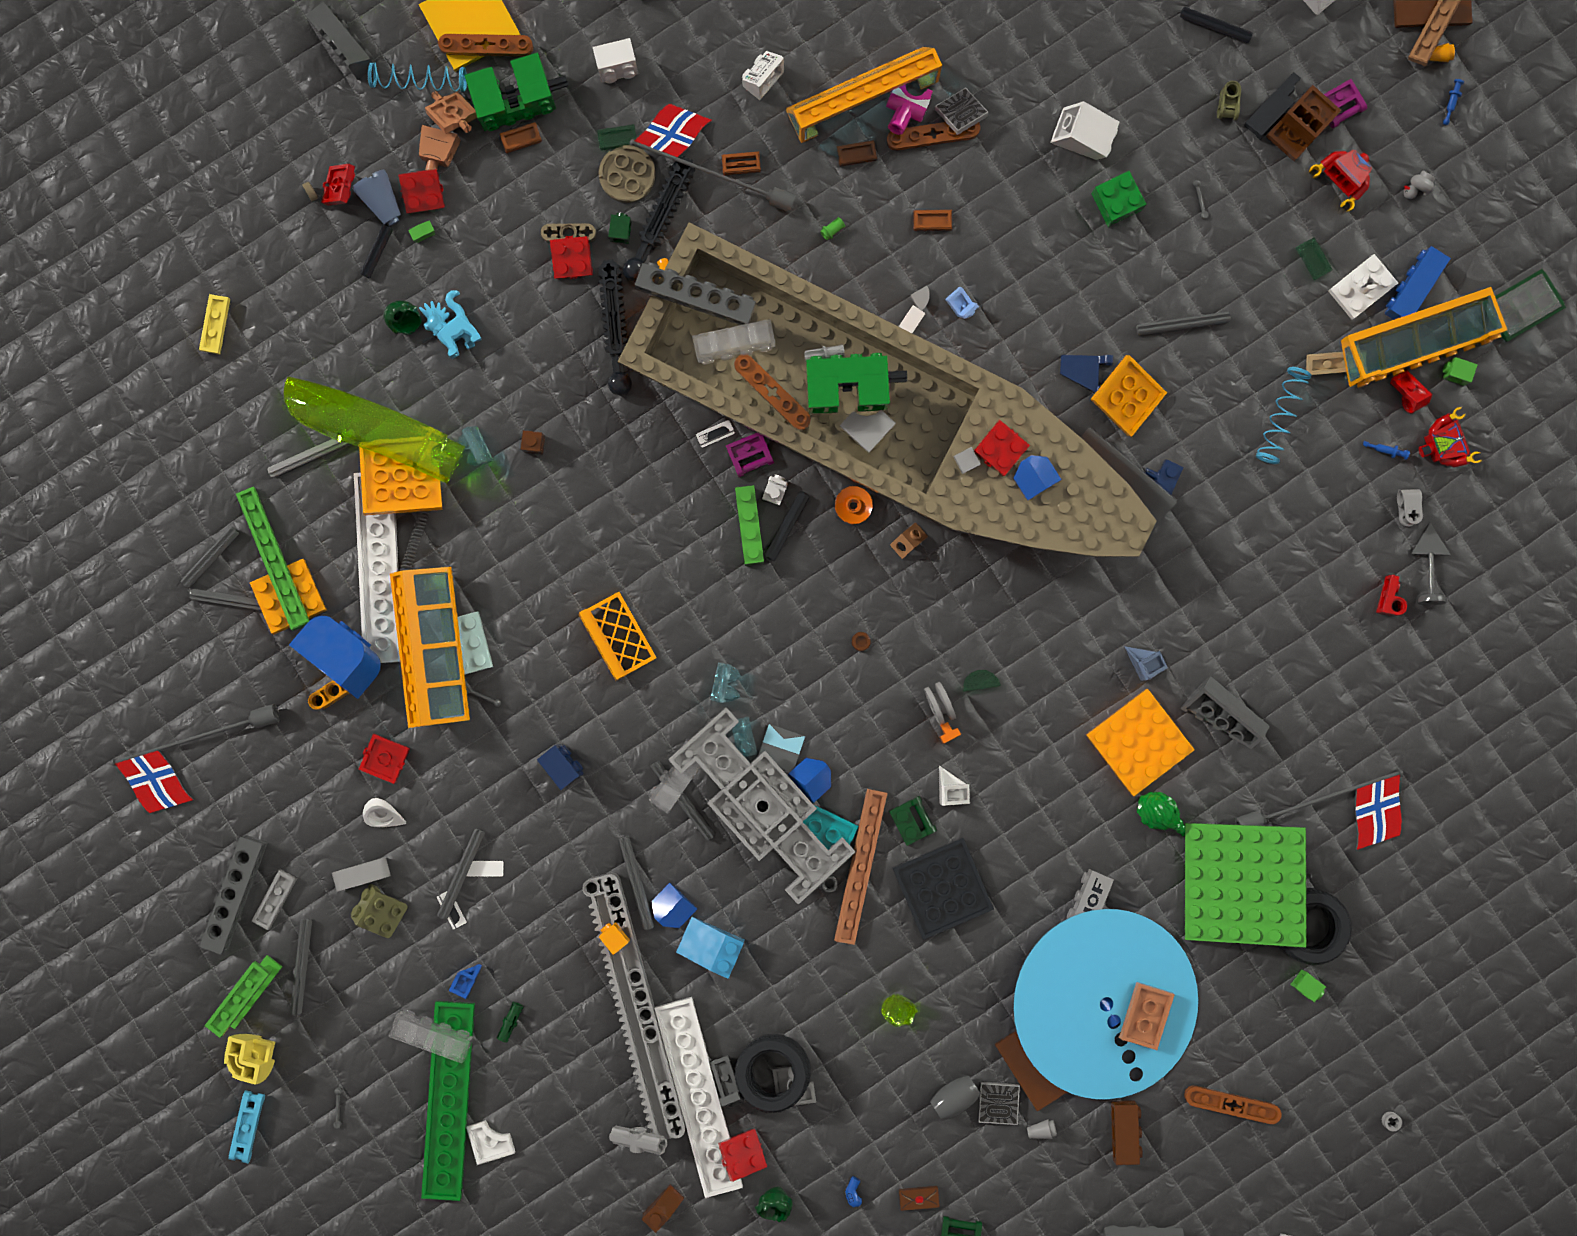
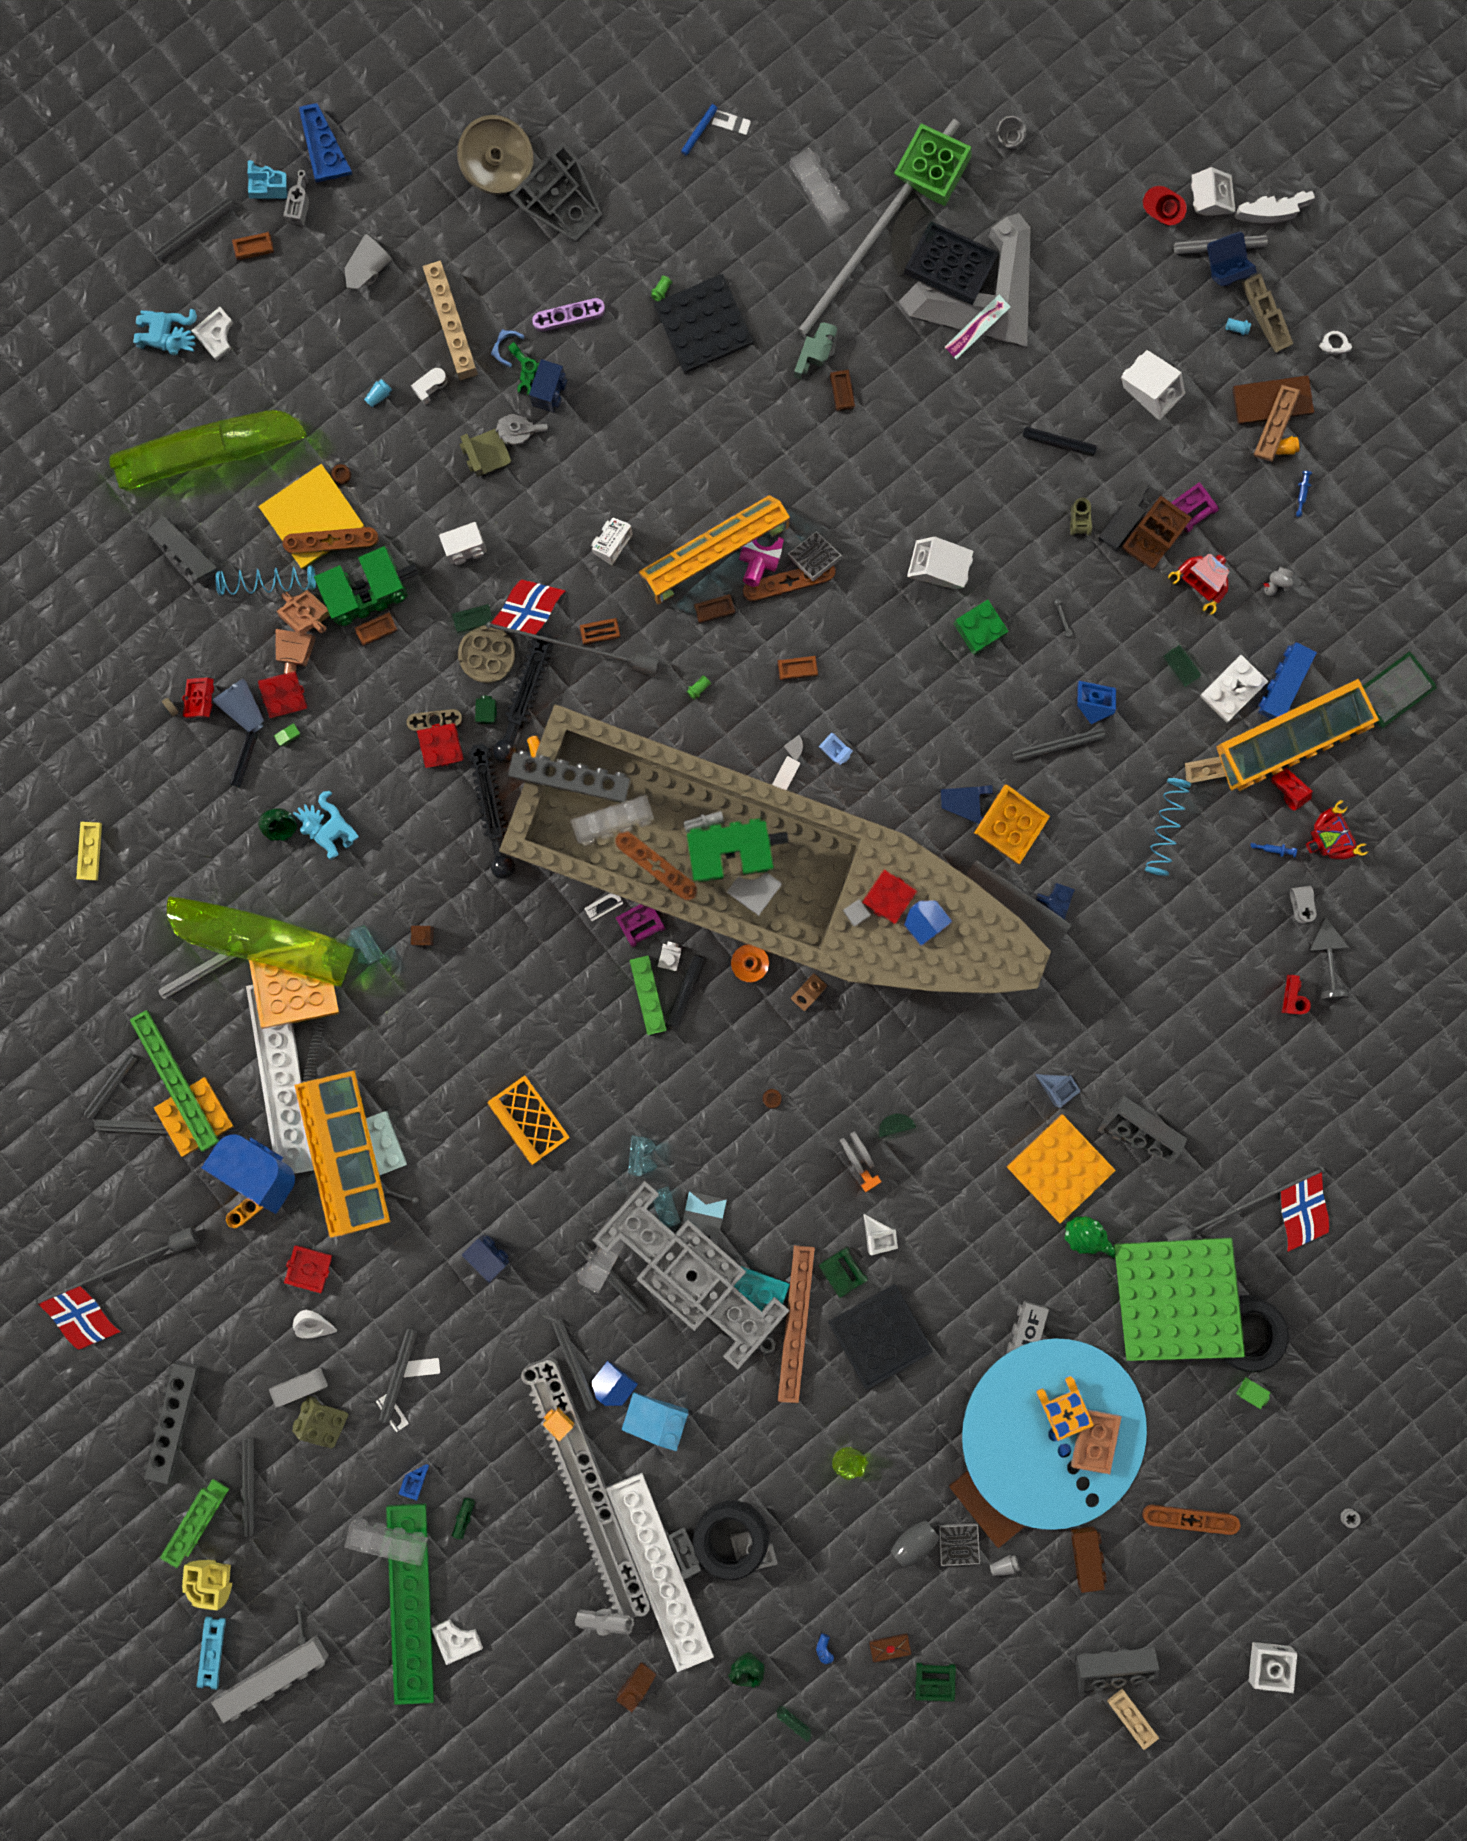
camera: 15 degrees left, 0 degrees up
(274, 899) = (213, 1422): light grey tile -> none
(301, 1159) = (270, 1679): none -> light grey brick
(742, 1155) = (709, 1625): red plate -> none
(812, 778) = (738, 1241): blue slope -> none
(1120, 984) = (1067, 1412): none -> light orange flag
(1225, 284) = (1096, 701): none -> blue slope
(1459, 371) = (1338, 763): bright green brick -> none

